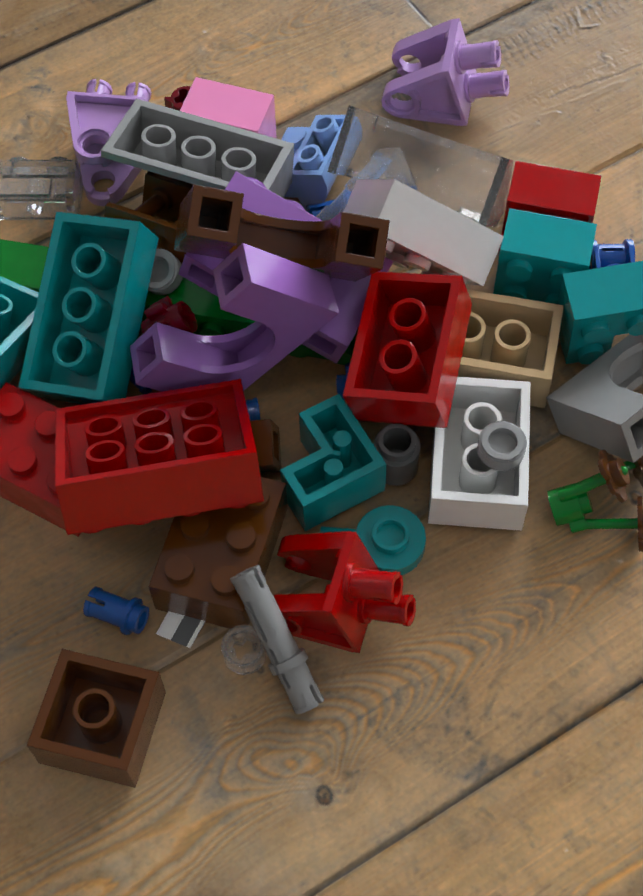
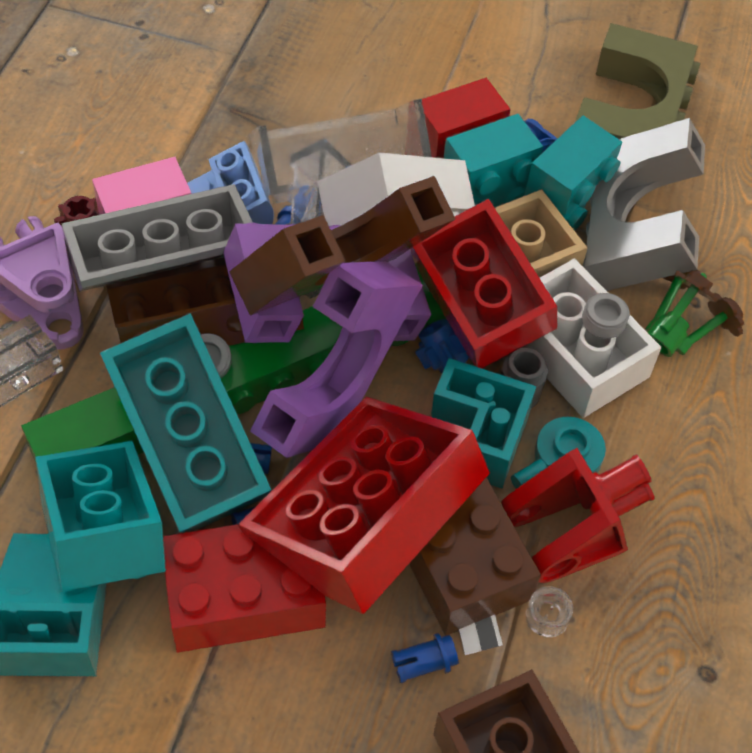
camera: 45 degrees left, 5 degrees down
(176, 315) = (252, 392): dark red gear -> none
(271, 627) = (598, 588): light grey pin -> none
(445, 76) = (271, 75): lavender piece -> none

